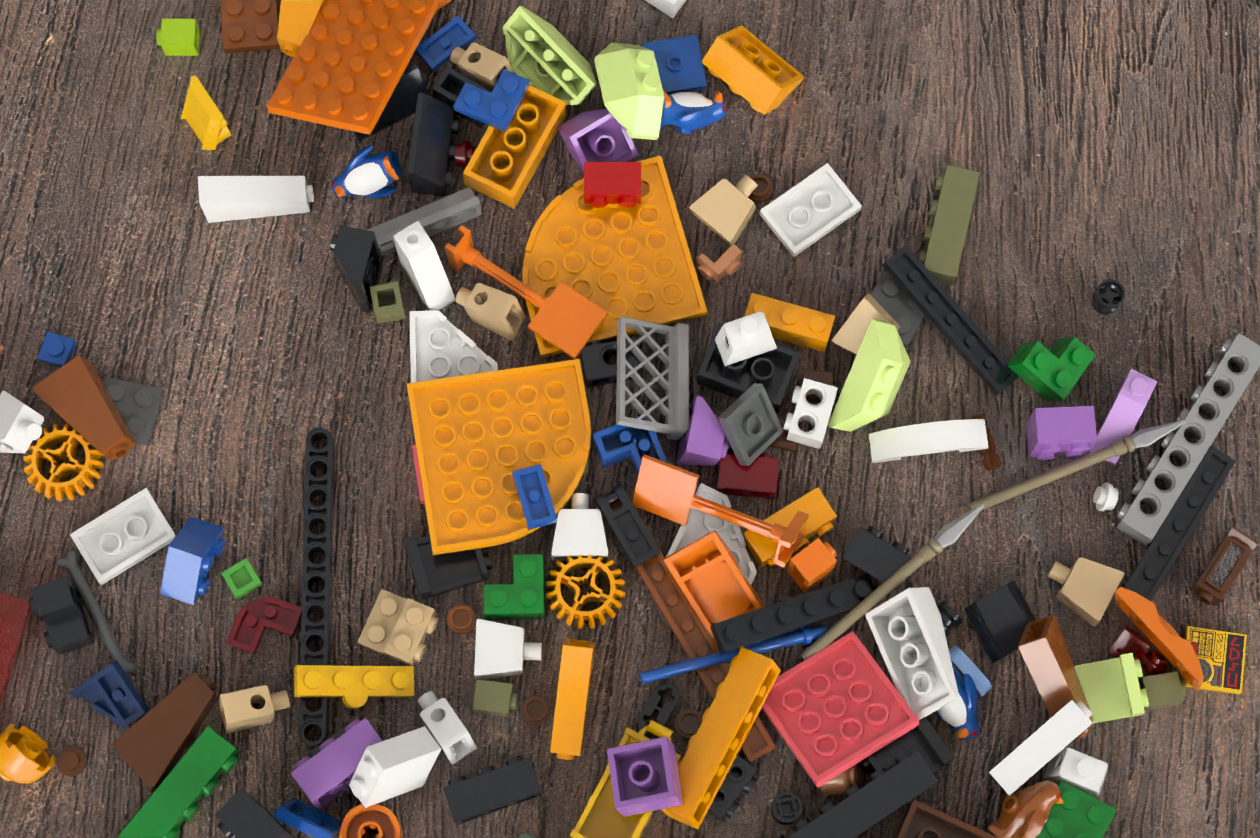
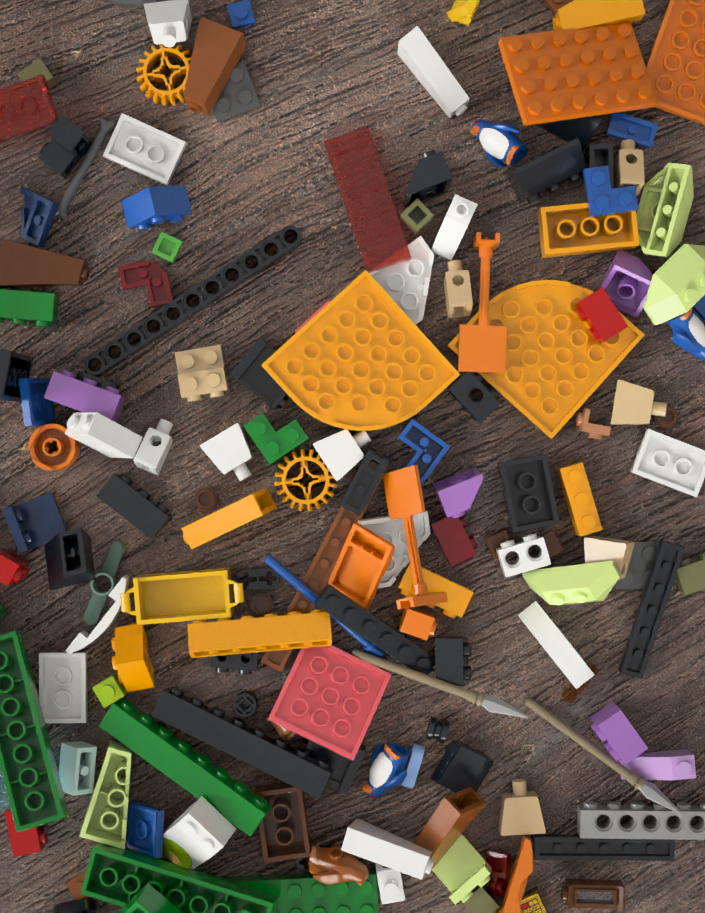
camera: 65 degrees right, 15 degrees up
(238, 710) = (77, 305): tan torso -> none
(336, 341) = (367, 200): none -> clear red plate
(353, 682) = (144, 369): yellow hinge -> none
(433, 218) = (492, 202): light grey fence -> none
(461, 619) = (234, 410): dark orange plate -> none
(463, 153) = (558, 197): dark red plate -> none
(494, 698) = (195, 467): olive brick -> none
(534, 496) = (341, 408): blue plate -> none
(645, 776) = (198, 605): medium lavender brick -> none
(675, 381) = (484, 450): light grey fence -> none
(746, 338) = (543, 481): white torso -> none
(751, 424) = (486, 522): dark grey plate -> none
(915, 649) = (400, 728): white slope -> none
(1052, 371) = (661, 703): green brick -> none
(1105, 497) = (592, 787): white plate -> none

